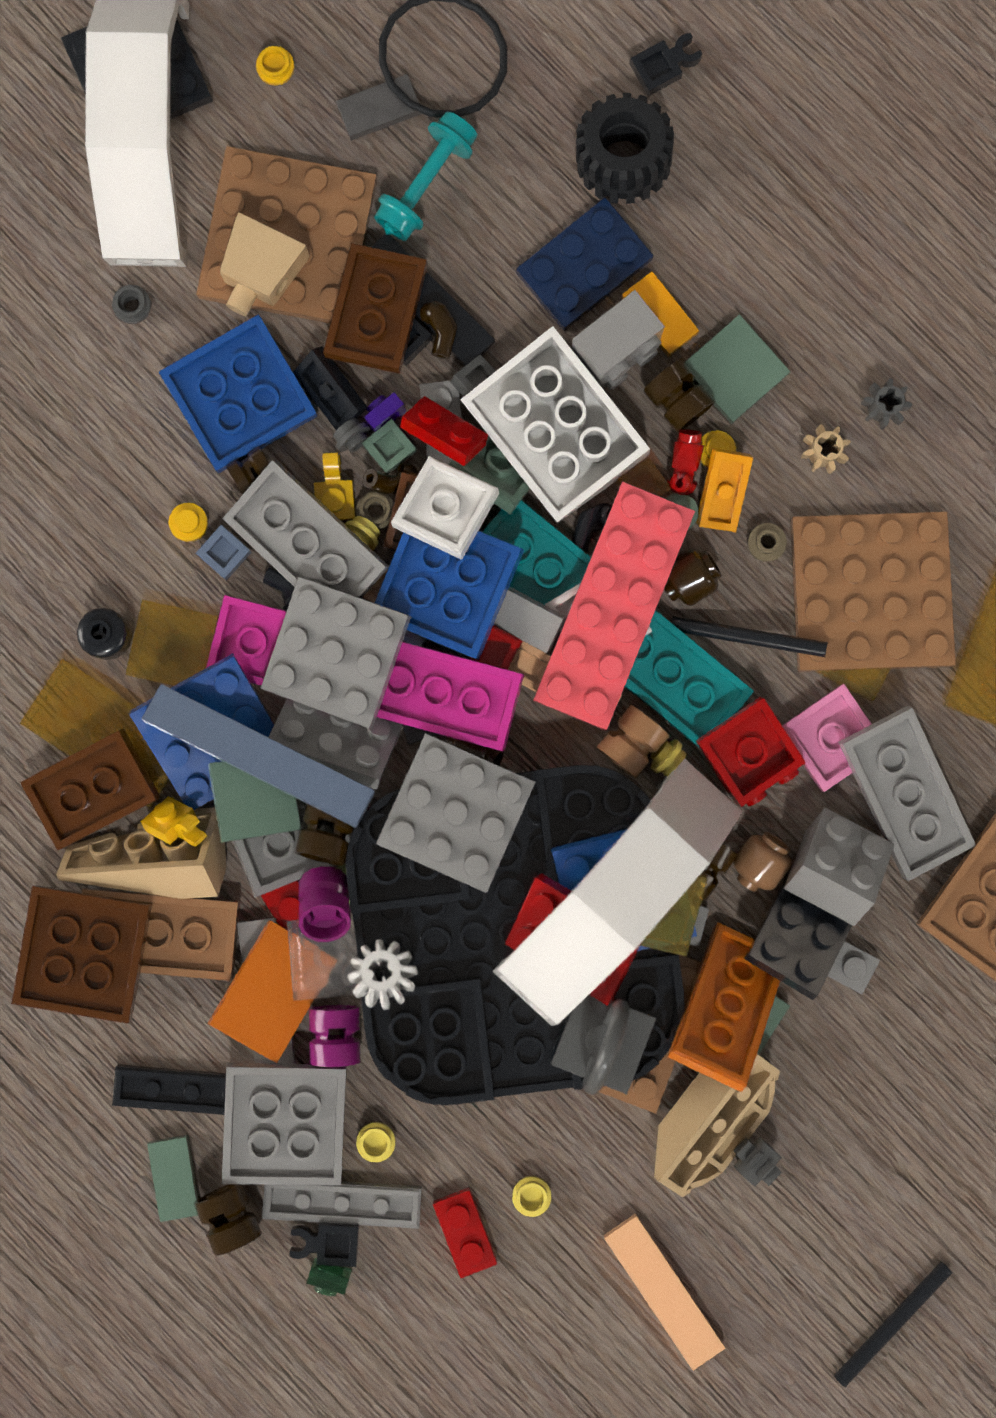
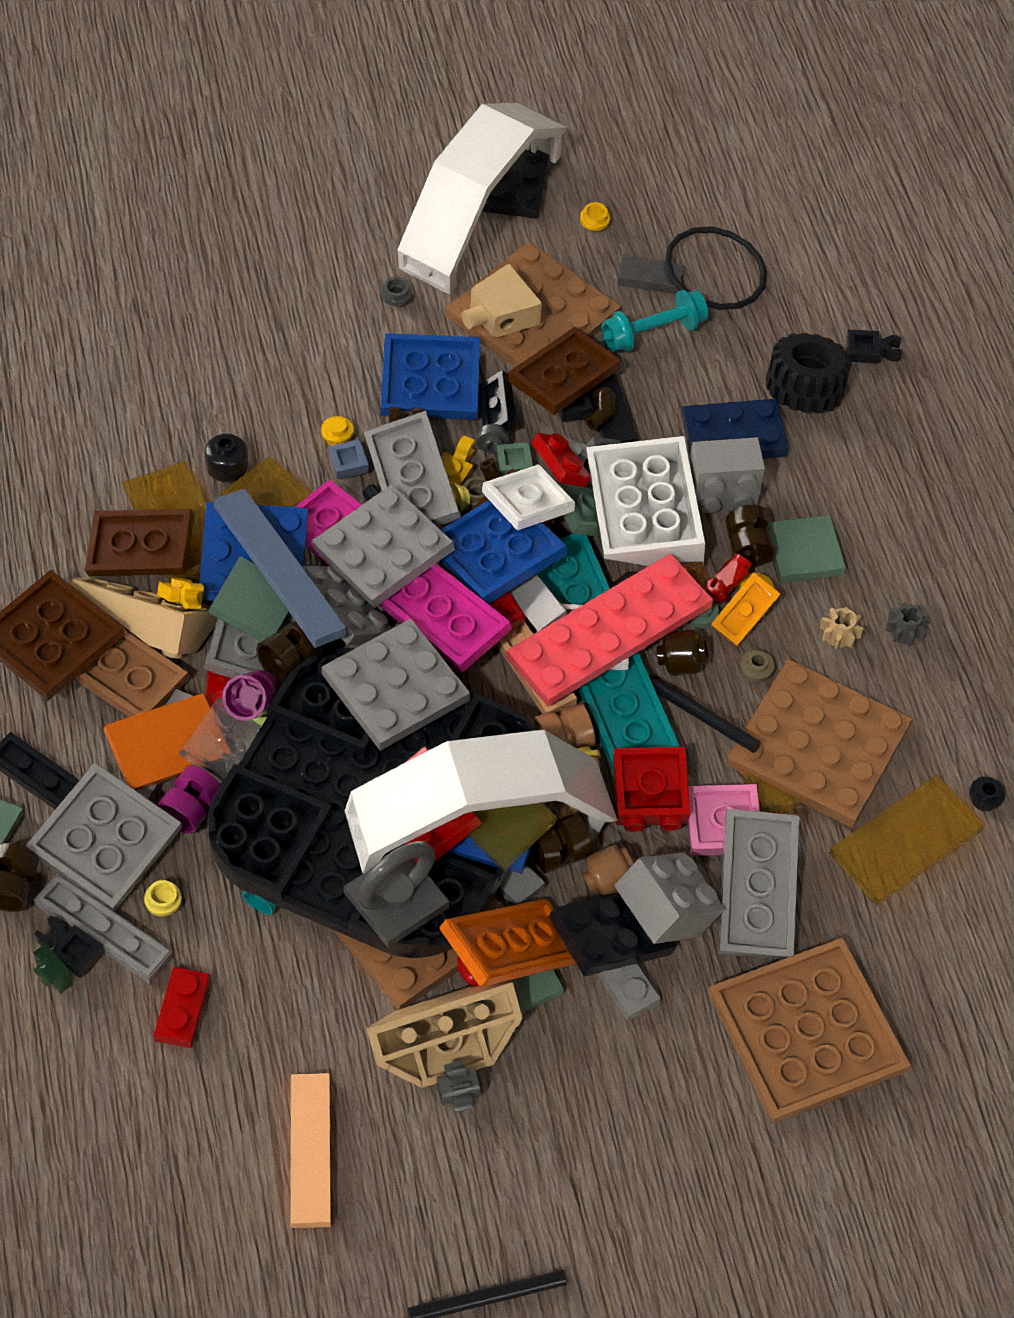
camera: 25 degrees right, 30 degrees down
(376, 960) = (261, 752): white gear -> none
(384, 410) = (525, 433): dark purple plate -> none
(531, 1196) = (255, 1010): light yellow plate -> none
(678, 326) = (774, 489): light orange tile -> none

